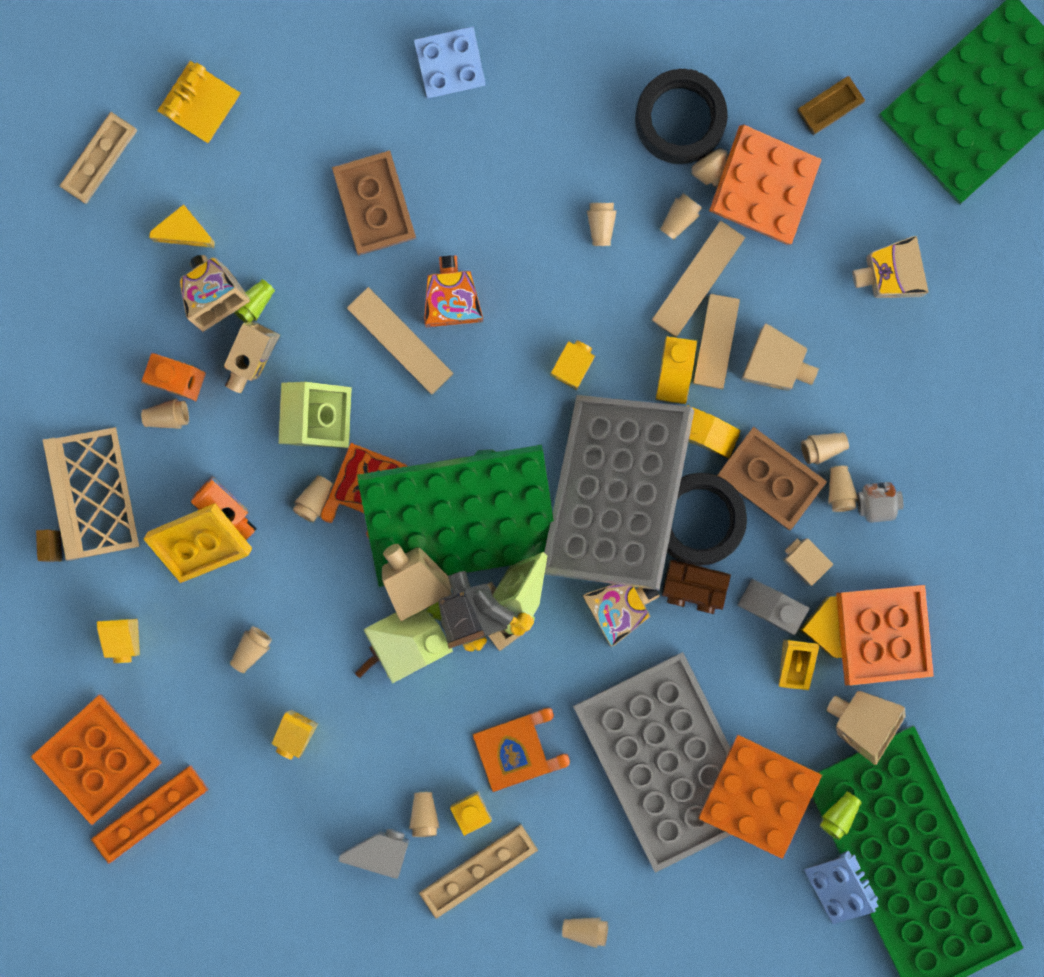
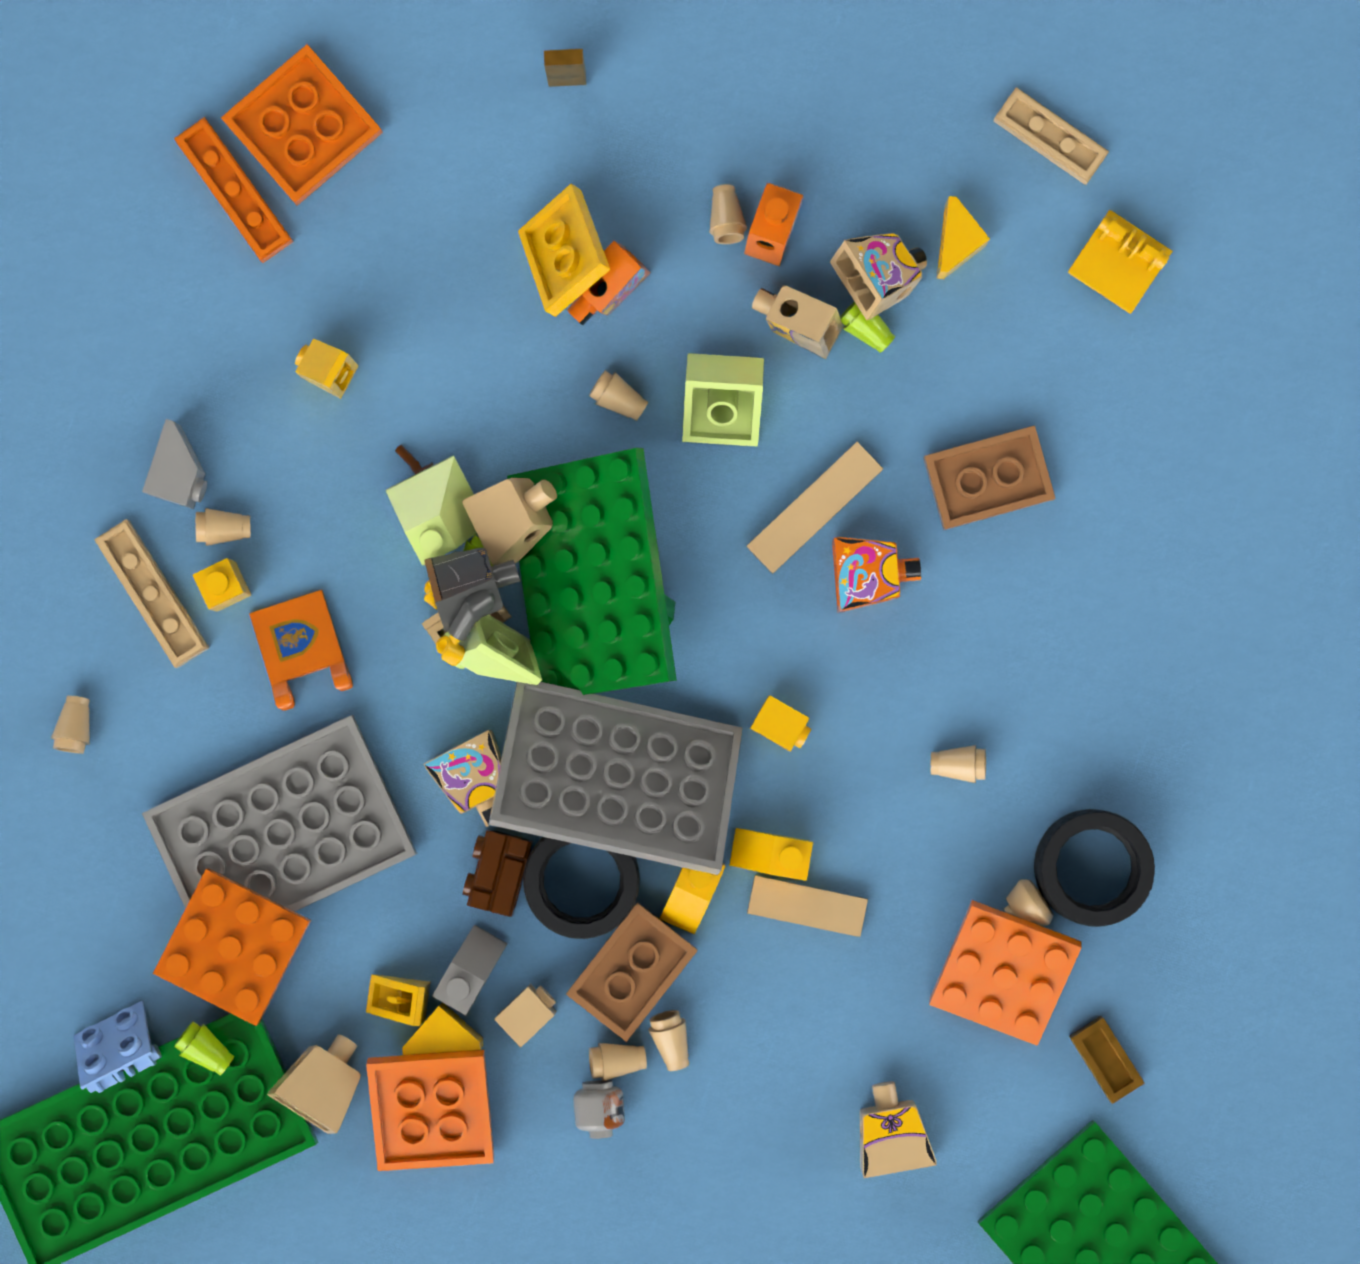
camera: 95 degrees right, 0 degrees up
(64, 499) = (623, 88): tan fence -> none
(119, 639) = (449, 153): yellow slope -> none
(250, 649) = (434, 316): tan cone -> none
(346, 486) = (661, 451): flag -> none
(450, 62) = (1166, 576): light blue hinge -> none
(680, 216) = (967, 864): tan cone -> none
(698, 279) = (887, 885): tan tile -> none
(778, 361) = (780, 983): tan torso -> none

